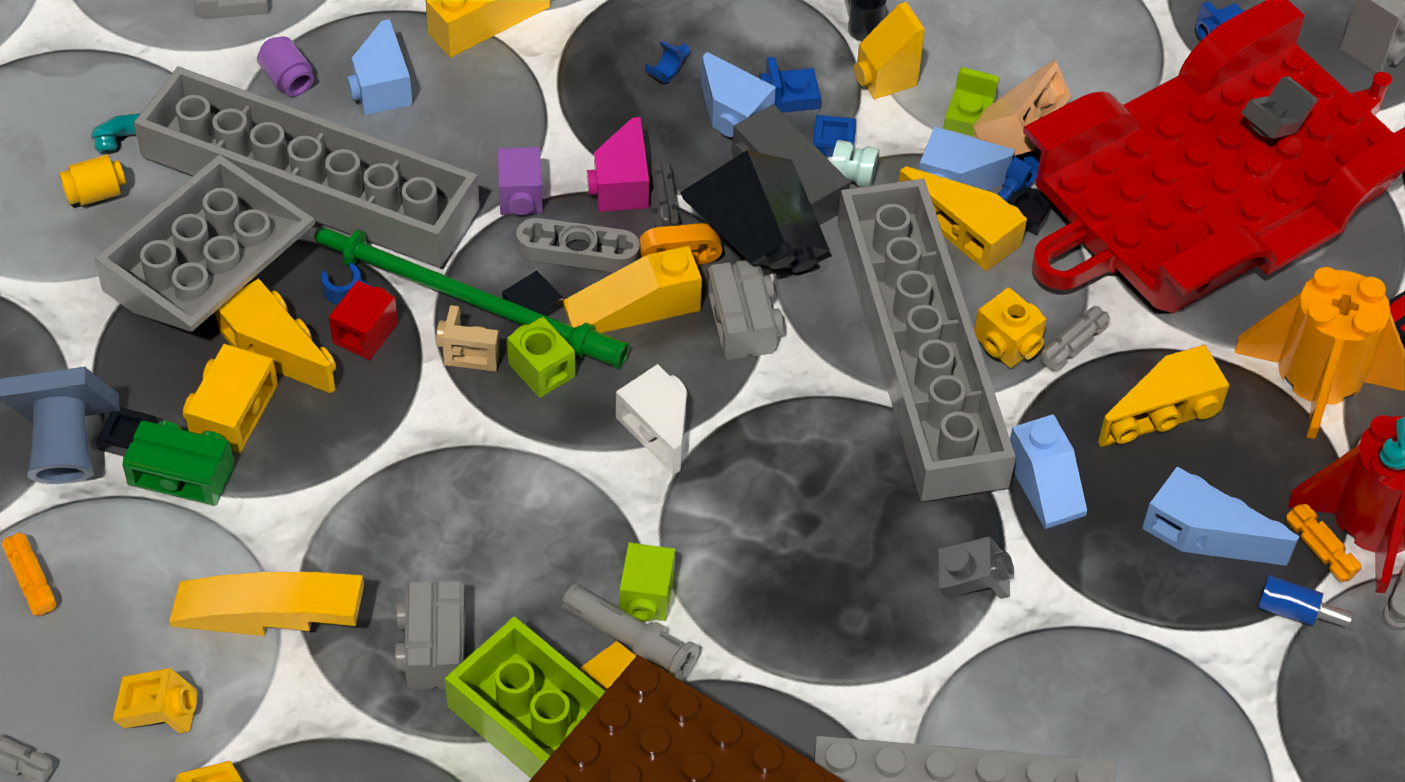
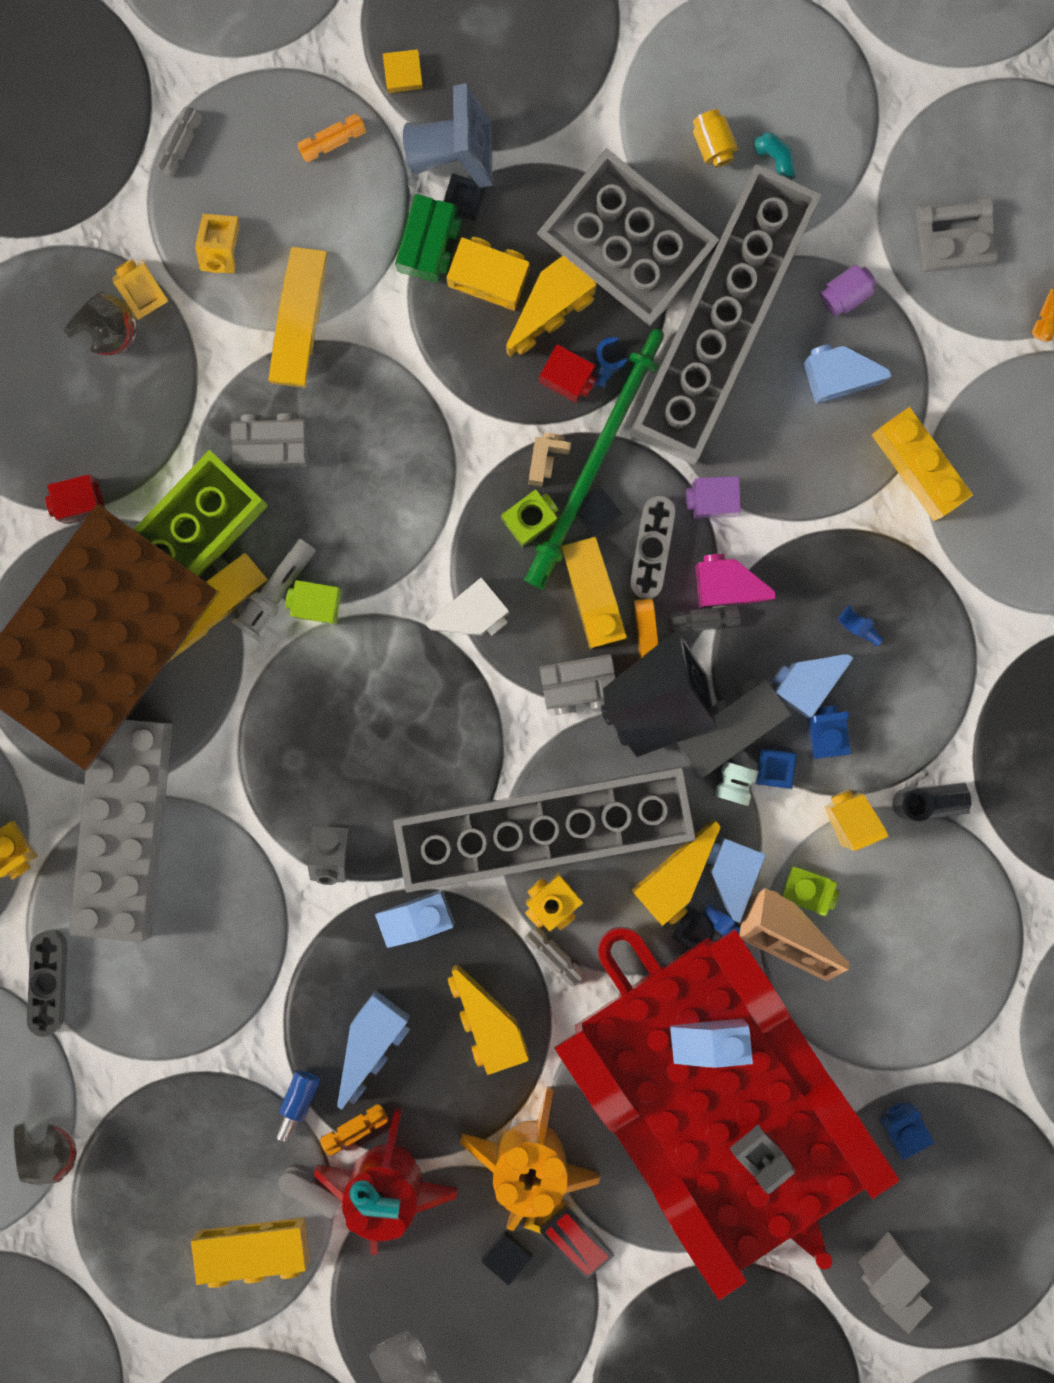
camera: 95 degrees right, 35 degrees up
(1156, 152) = (712, 1043): none -> light blue slope

